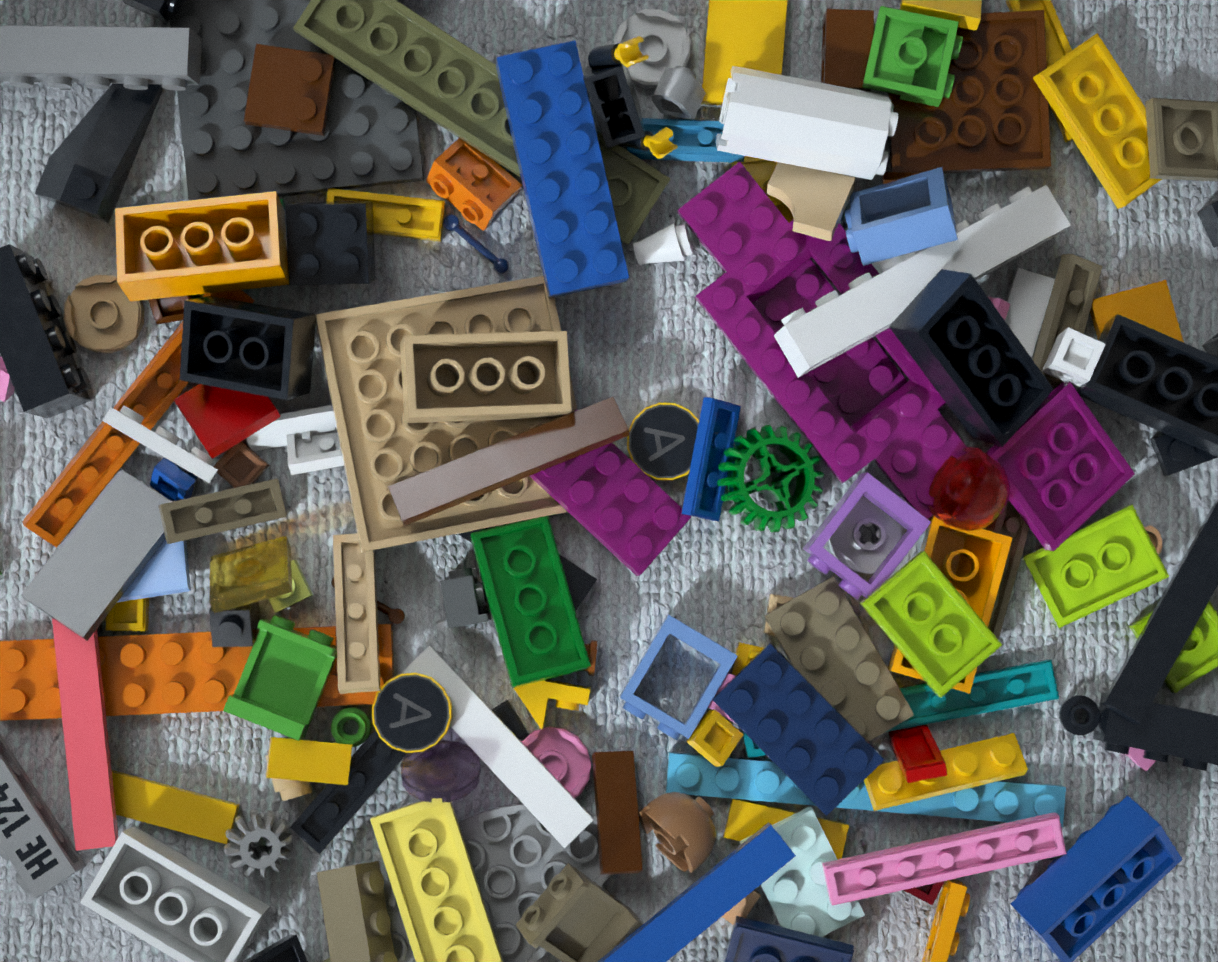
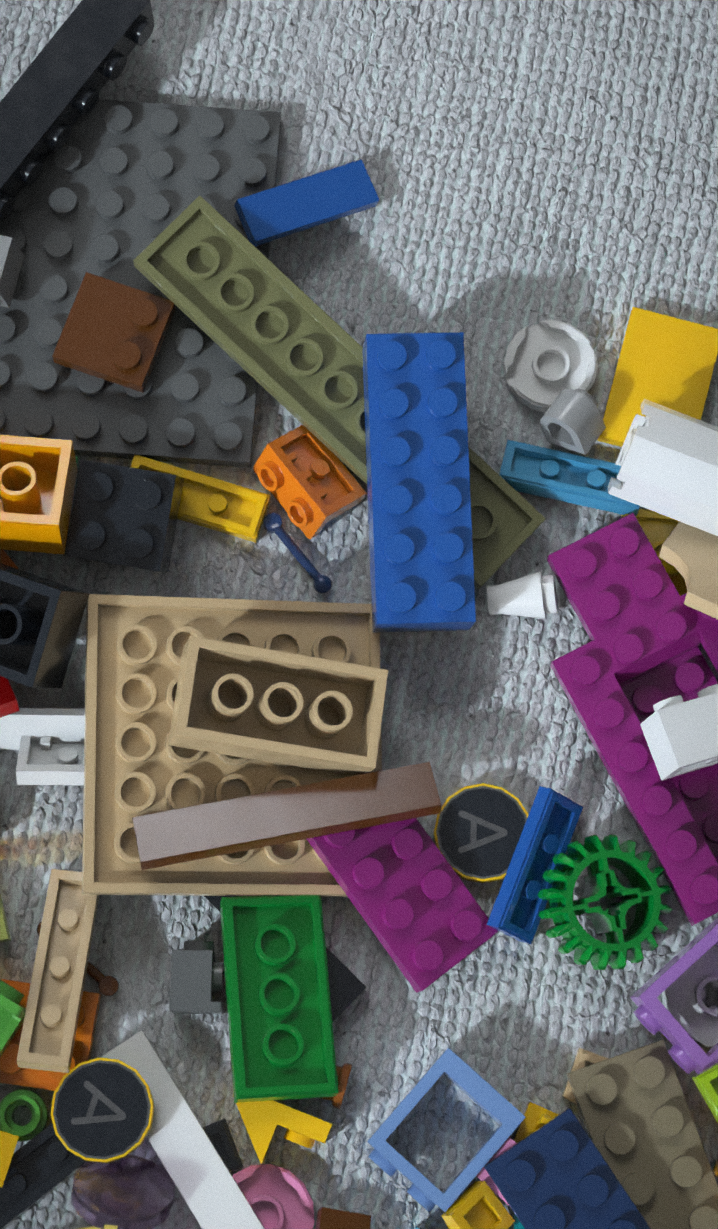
camera: 10 degrees right, 10 degrees down
(617, 101) = (498, 411): black torso -> none

